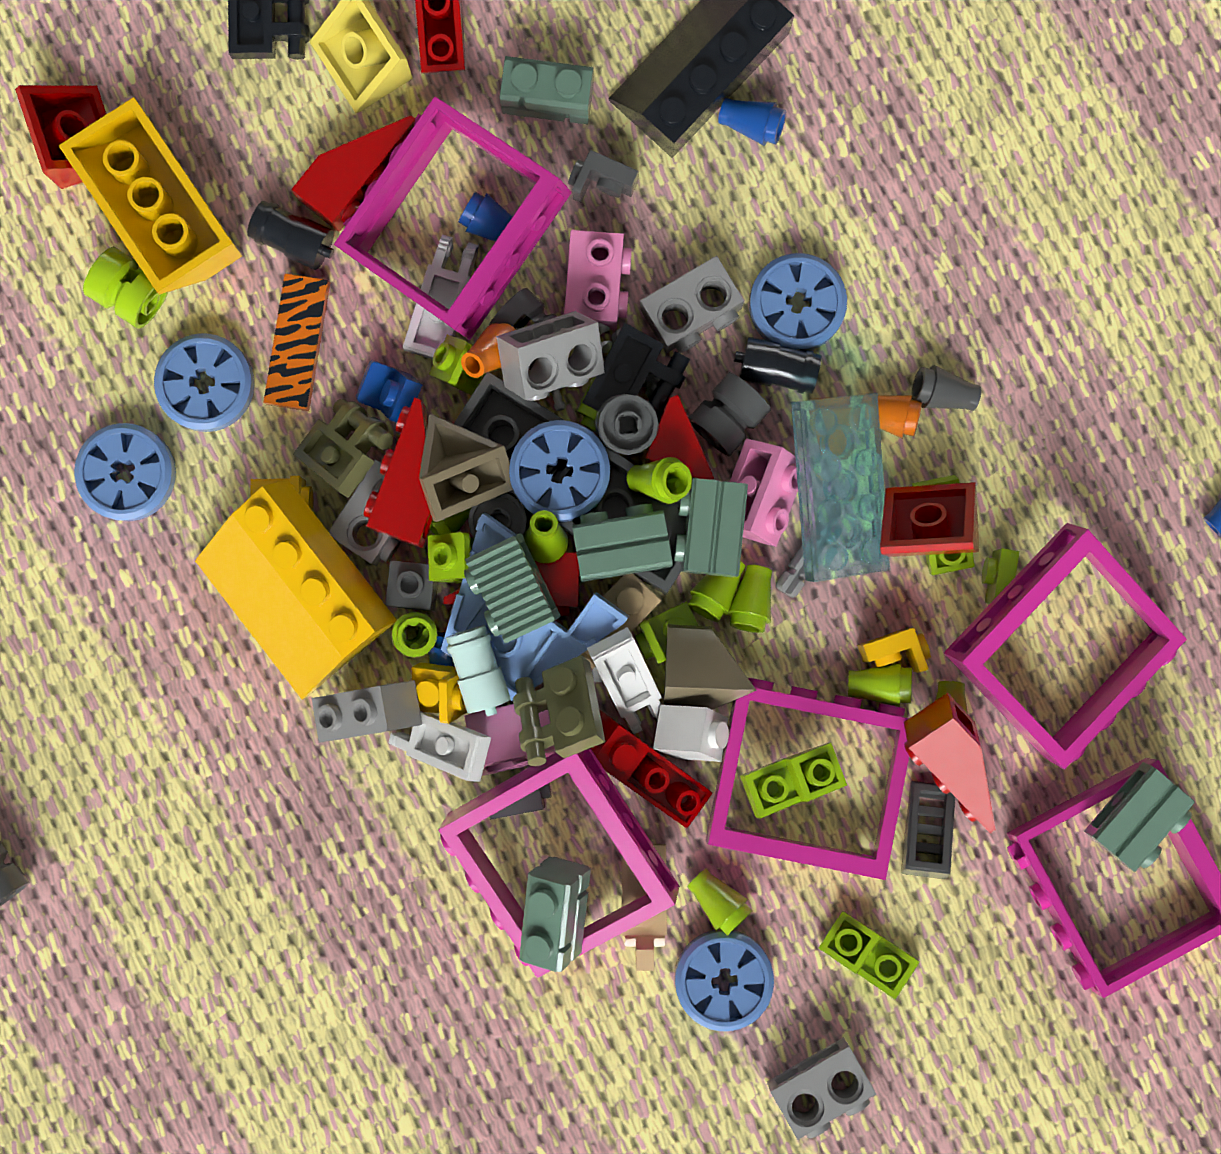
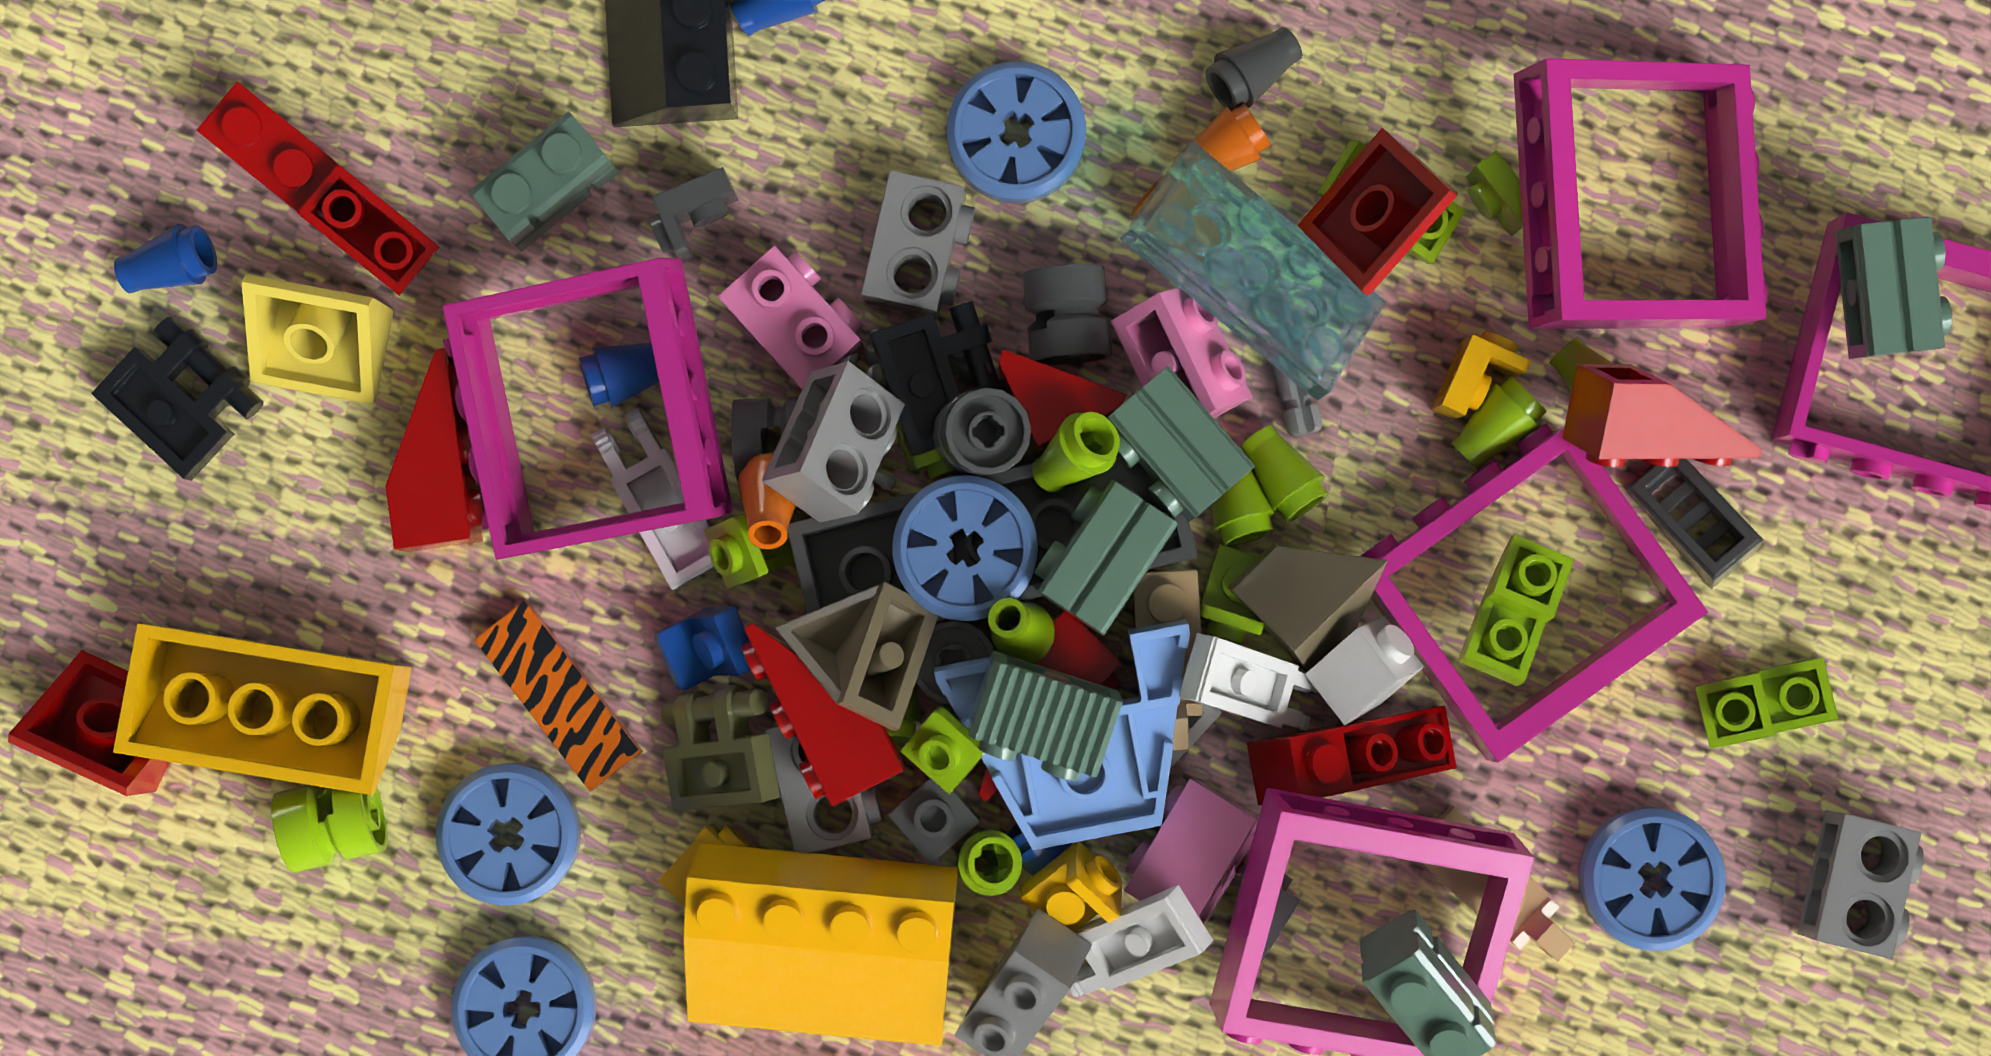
camera: 40 degrees left, 0 degrees up
(290, 234) = (443, 593): black piece -> none
(477, 669) = (1094, 832): light aqua piece -> none
(572, 711) = (1231, 772): olive plate -> none
(719, 901) = (1567, 806): lime cone -> none
(777, 365) = (1058, 219): black piece -> none

